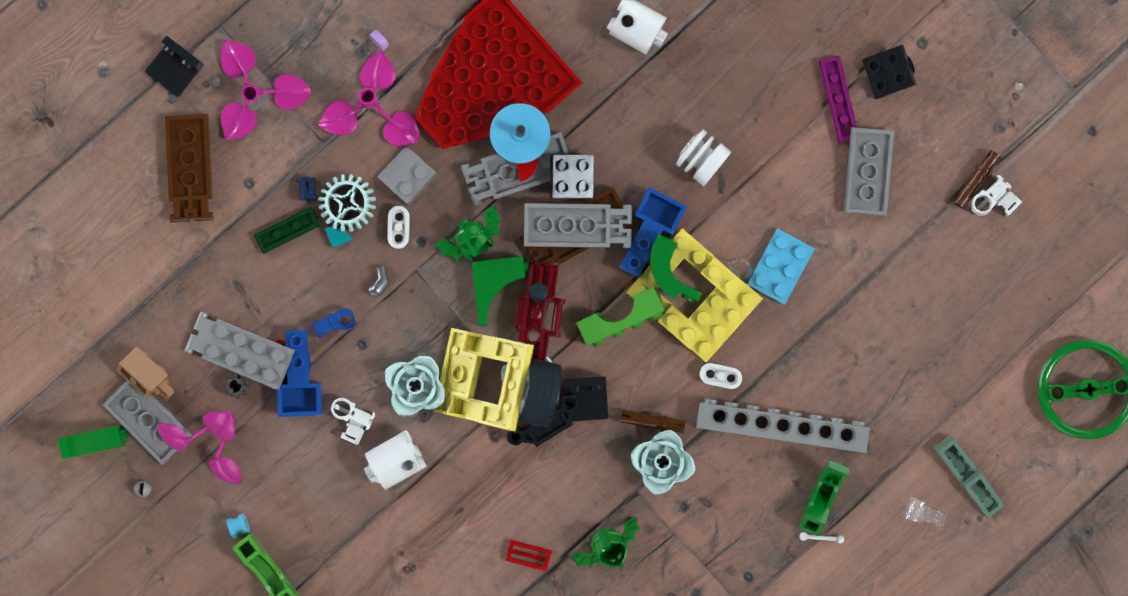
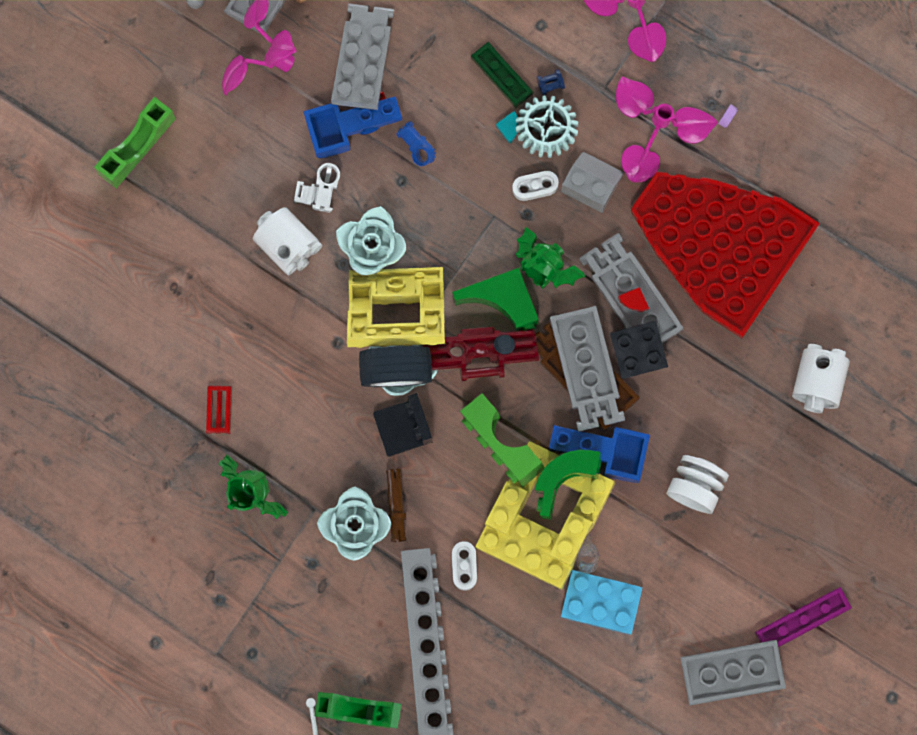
camera: 80 degrees right, 10 degrees down
(238, 526) = (178, 101): medium azure wheel -> none
(240, 381) = (318, 62): dark grey gear -> none
(381, 283) = (470, 183): flat silver arm -> none
(520, 133) = (669, 280): medium azure piece -> none
(538, 435) = (364, 397): black plate -> none
(890, 71) = (850, 667): black plate -> none

